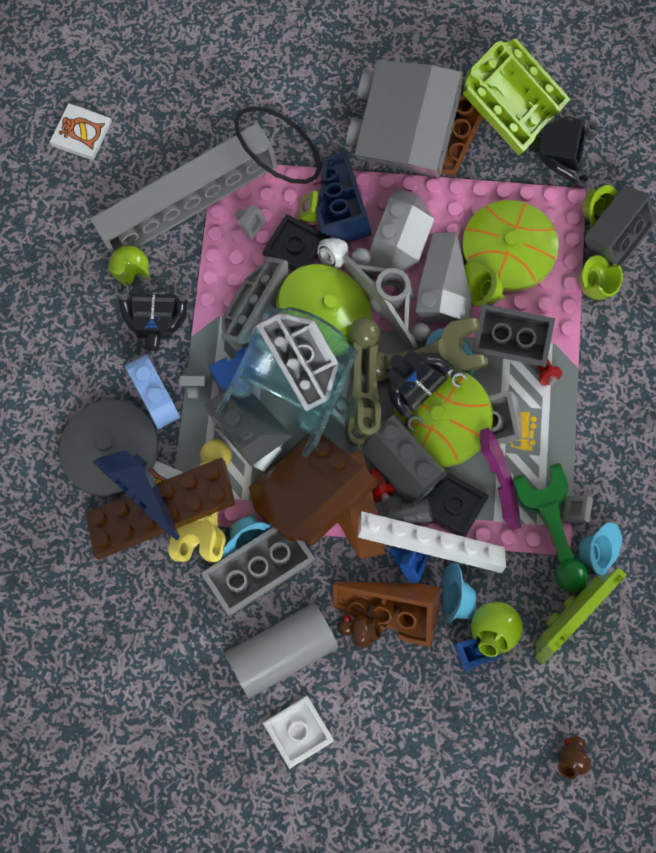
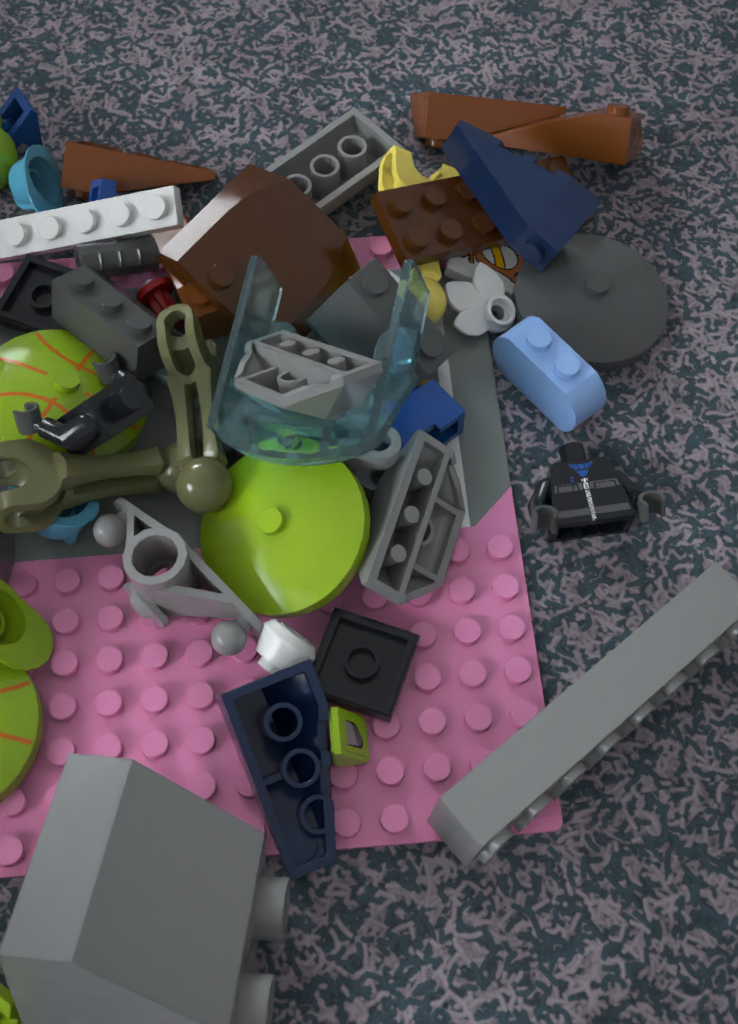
camera: 170 degrees right, 10 degrees down
(78, 569) = (596, 135): none -> dark orange wedge
(127, 263) = (655, 573): lime helmet -> none
(150, 612) = (439, 113): none -> dark orange wedge
(178, 451) = (477, 300): none -> white plate
(193, 383) = (485, 399): light grey tile -> none
(243, 532) = (354, 213): medium azure piece -> none
(250, 220) = (456, 688): light grey tile -> none
(264, 166) = (519, 817): black piece -> none
(281, 650) = (280, 108): light grey brick -> none
(298, 732) = (242, 40): white tile -> none
(363, 630) = (167, 138): reddish brown animal -> none
(401, 232) = (161, 704): light grey wedge -> none
(444, 283) = (66, 619): light grey wedge -> none

